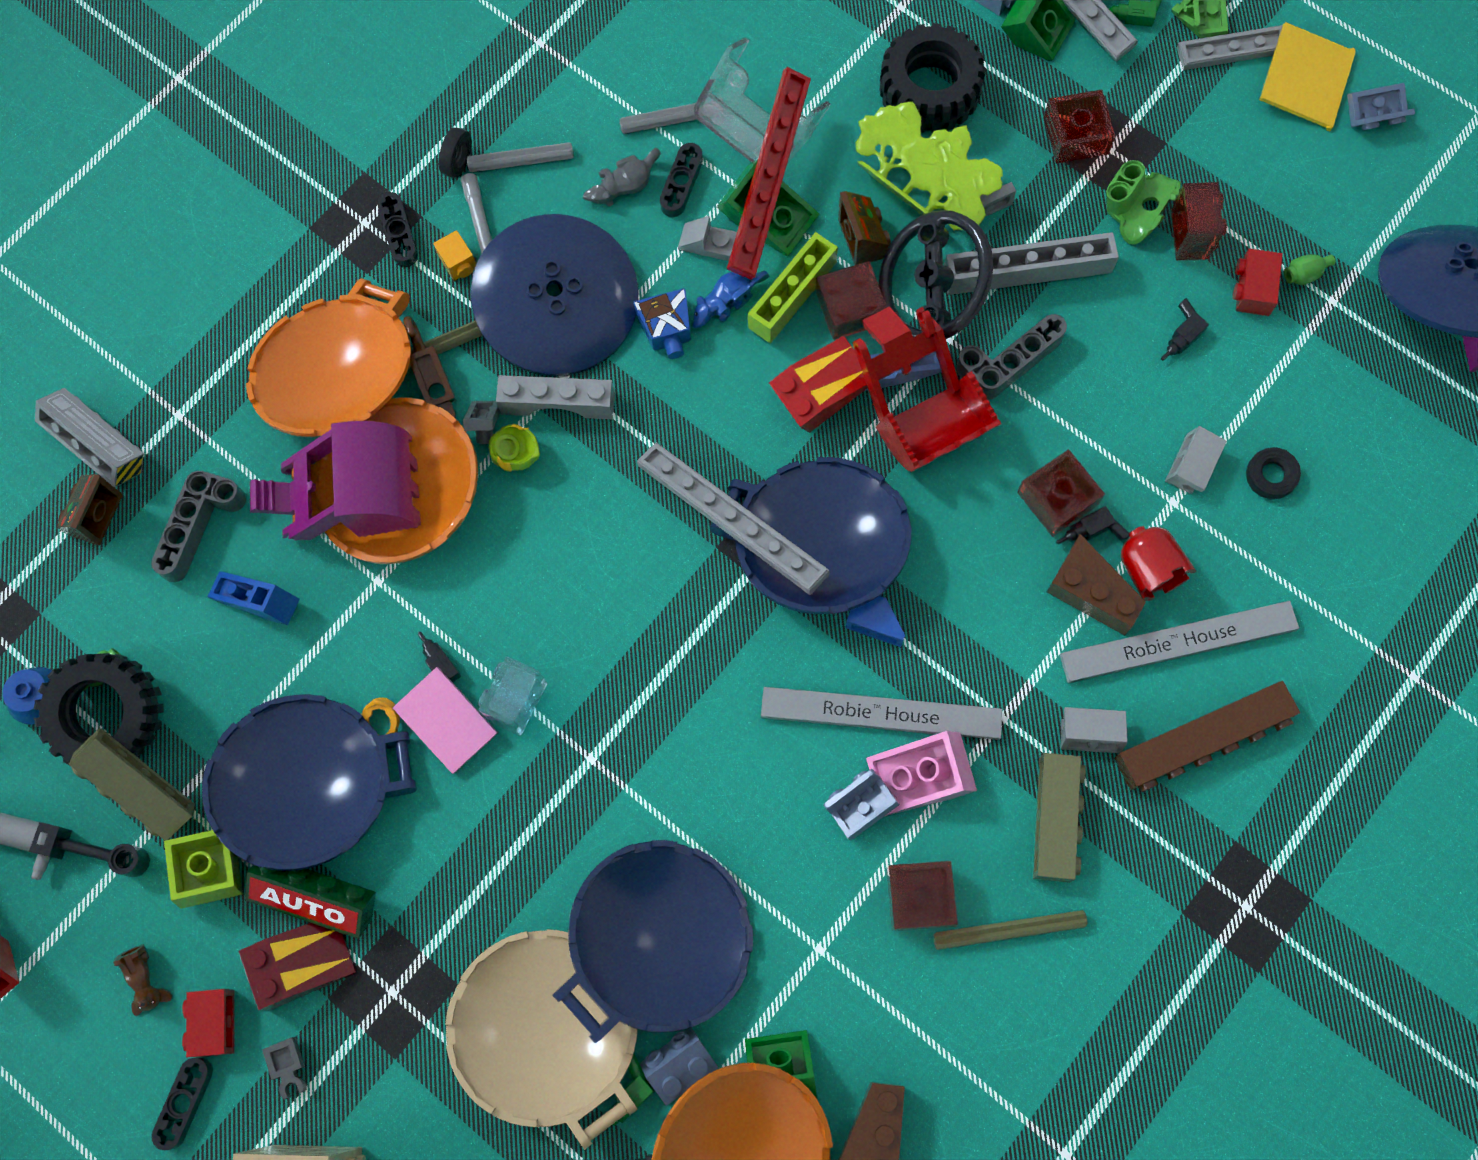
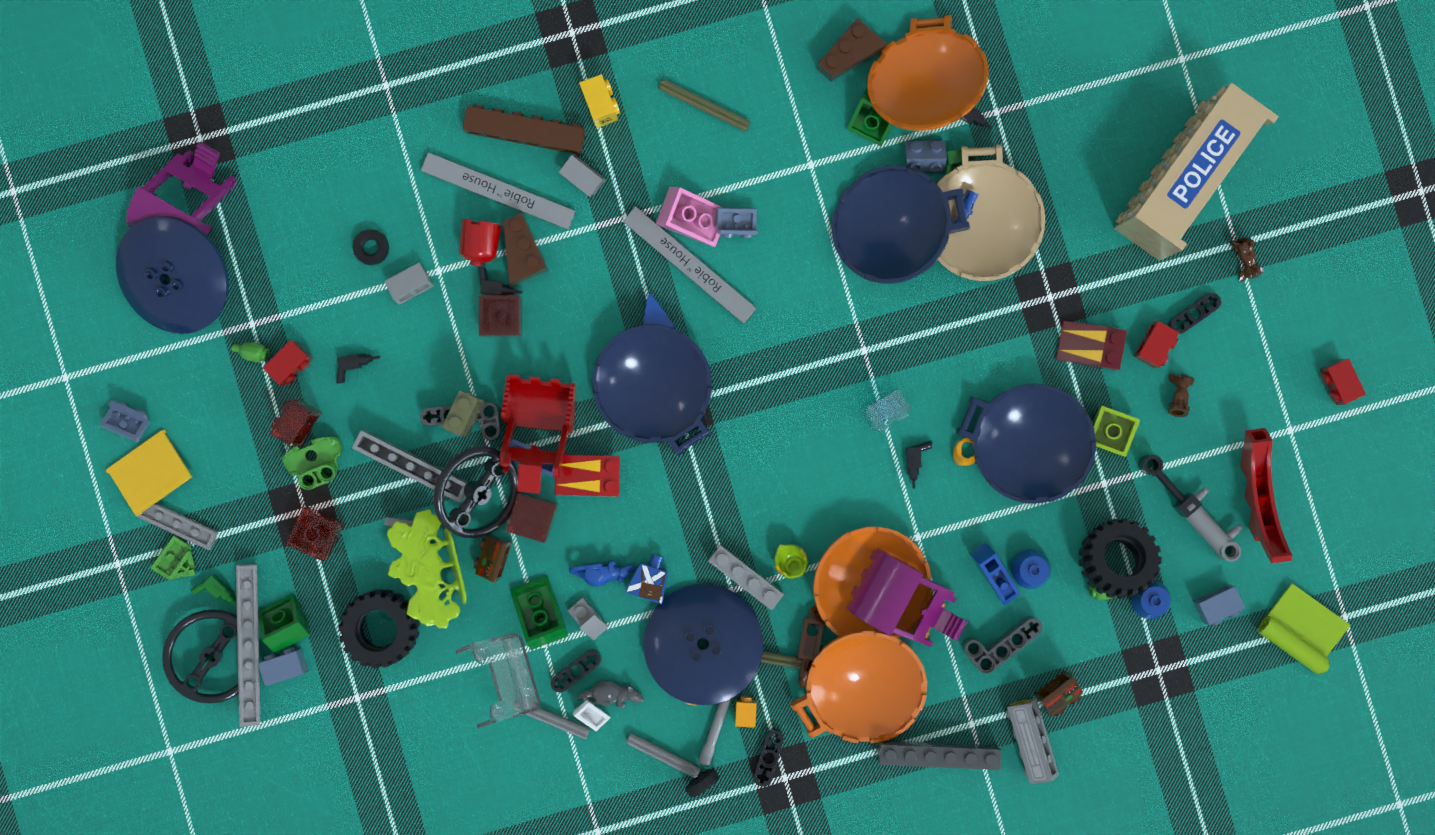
camera: 155 degrees left, 15 degrees up
(131, 784) = (1125, 500): olive brick -> none
(193, 353) = (939, 755): none -> dark grey brick
(210, 632) = (1031, 569): none -> blue cone
(284, 1062) = (1129, 298): dark grey plate -> none
(312, 898) = (1063, 372): brick -> none
(445, 720) = (931, 425): bright pink tile -> none
(482, 419) = (797, 592): dark grey tile -> none
(577, 1033) = (969, 200): none -> blue pin
(631, 141) = (591, 715): none -> white slope
(733, 518) = (695, 429): light grey tile -> none
(768, 174) = (524, 629): red tile -> none
(792, 287) = (561, 548): lime brick -> none
(921, 896) = (740, 151): clear red brick -> none
(1017, 343) = (463, 413): none -> olive brick
(1057, 818) = (637, 143): olive brick -> none
(1145, 834) = (601, 106): none -> yellow brick

